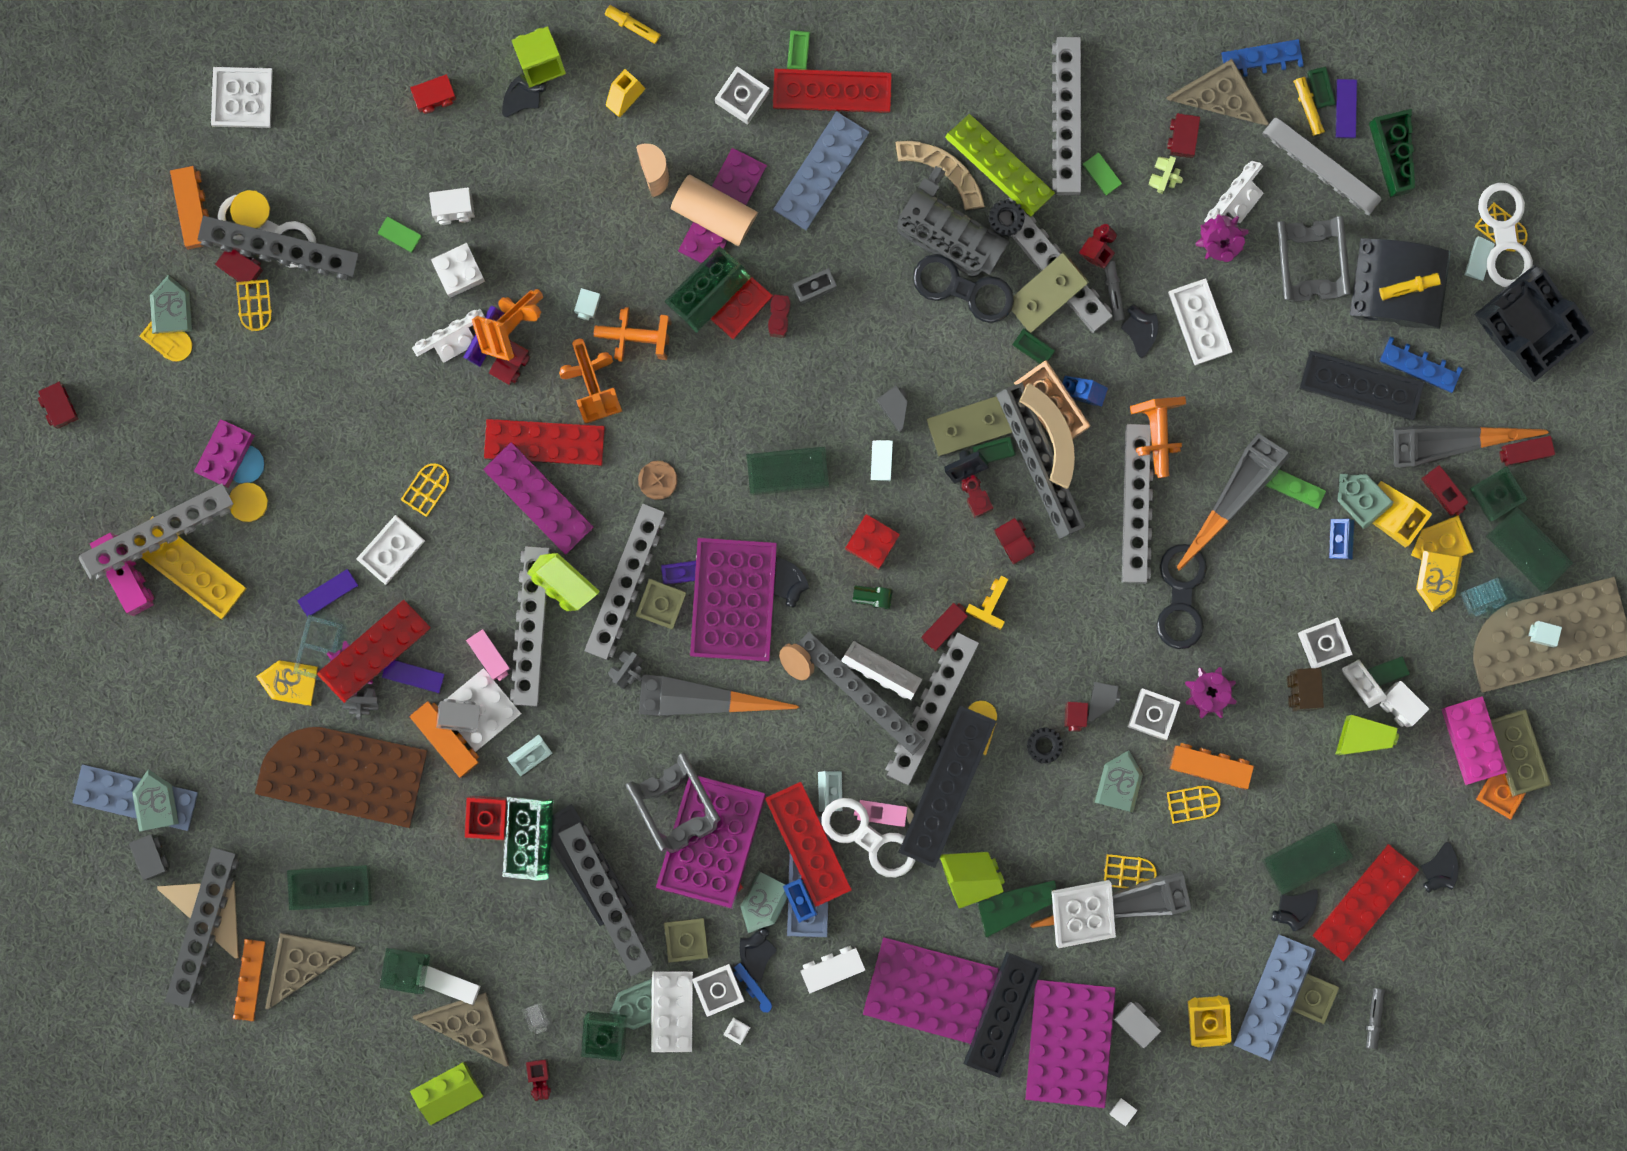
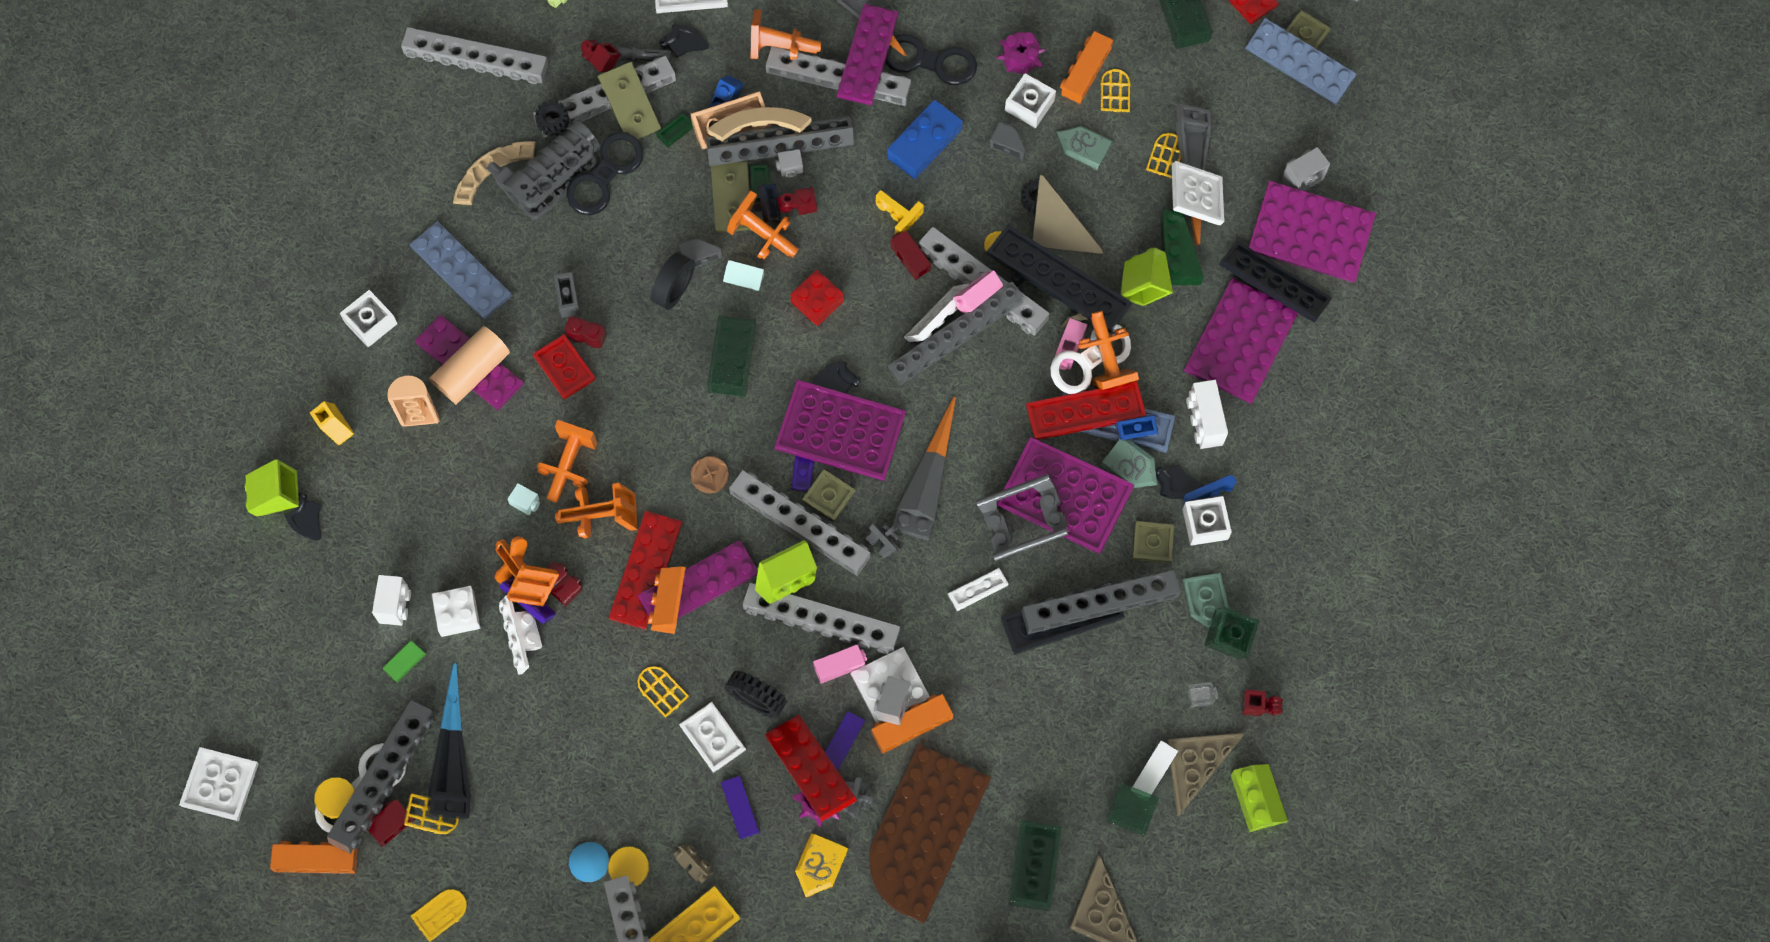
camera: 80 degrees left, 15 degrees down
(170, 308) = (410, 902): sand green tile -> none
(224, 453) = (573, 878): magenta plate -> none
(260, 570) = (688, 856): none -> dark tan hinge
(288, 312) = (449, 782): none -> black plate
(310, 618) = (786, 840): clear light blue window -> none
(433, 94) = (276, 597): red brick -> none
(433, 581) = (755, 694): none -> black tyre
(485, 817) = (998, 697): red brick -> none
(506, 472) = (667, 599): none -> orange slope
(527, 837) = (1026, 661): clear green brick -> none
(529, 755) = (944, 648): light aqua slope -> none
(598, 775) = (978, 589): none -> white tile
(626, 20) = (266, 405): yellow pin -> none
(671, 1011) = (1218, 569): white plate -> none
(707, 289) = (541, 384): clear green brick -> none
(737, 1031) = (1247, 516): white tile -> none
(796, 661) = (912, 384): tile -> none
(798, 50) = (342, 265): bright green tile -> none
(829, 788) = (1038, 387): light aqua slope -> none
(832, 90) = (388, 244): red plate -> none
(850, 390) = (672, 280): none -> black tyre
(853, 866) = (1112, 376): none -> orange piece
(873, 596) = (867, 309): dark green piece -> none
(905, 705) = (978, 291): none -> bright pink brick
(930, 480) = (745, 217): none -> orange piece
(999, 165) = (500, 118): lime plate -> none
(1013, 773) = (1057, 225): none -> dark tan tile
(1014, 540) = (846, 181): dark red brick -> none
(1020, 477) = (789, 163): none -> light grey brick
(1076, 716) = (1017, 161): dark red brick -> none
(1081, 612) = (924, 139): none -> blue brick
(1102, 174) = (535, 41): bright green tile -> none
(1123, 1112) = (1380, 205): white tile -> none
(1164, 529) = (867, 54): none -> magenta plate
(1209, 1021) = (1311, 115): yellow slope -> none
(1296, 909) = (1225, 30): black arm -> none

